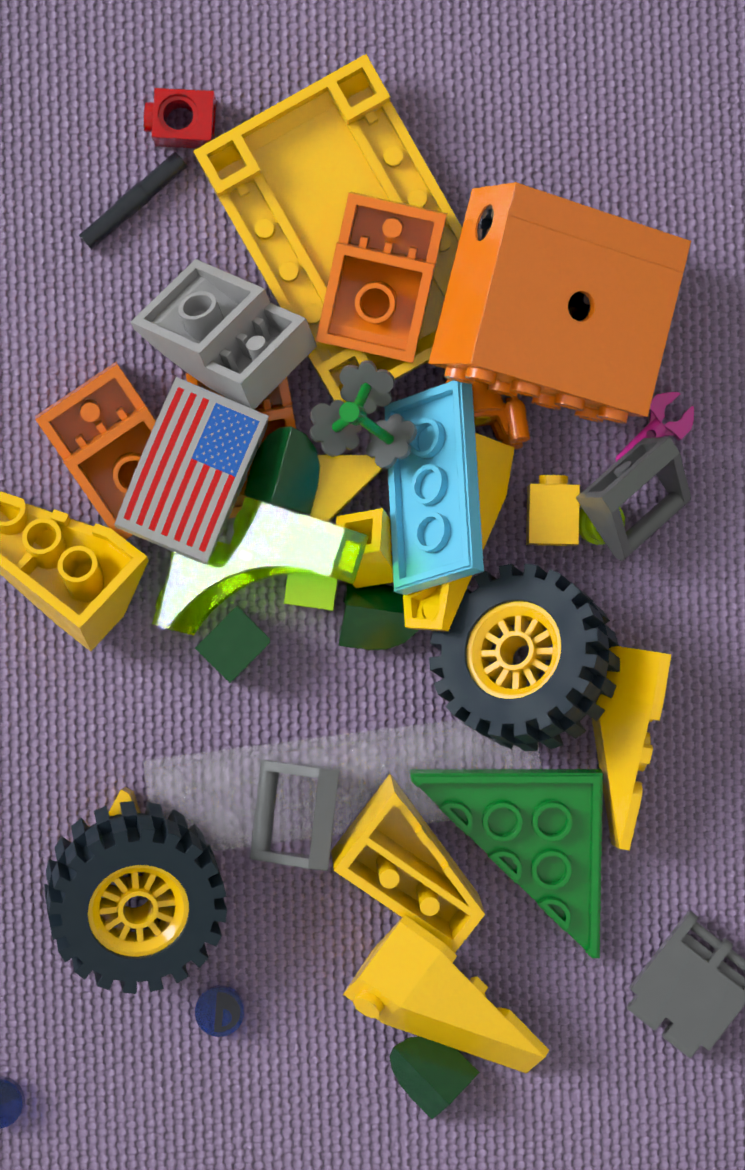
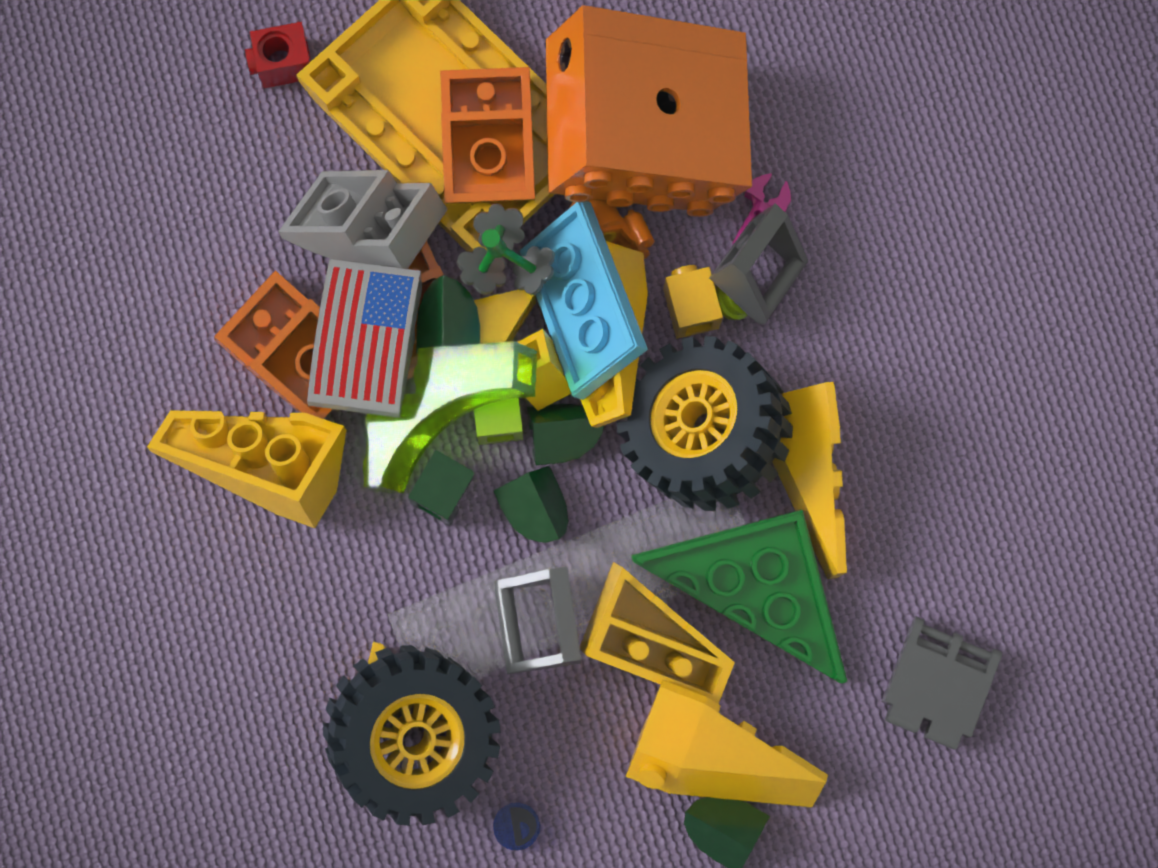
camera: 20 degrees left, 10 degrees down
(133, 200) = (255, 136): black piece -> none
(327, 688) = (535, 505): none -> dark green brick

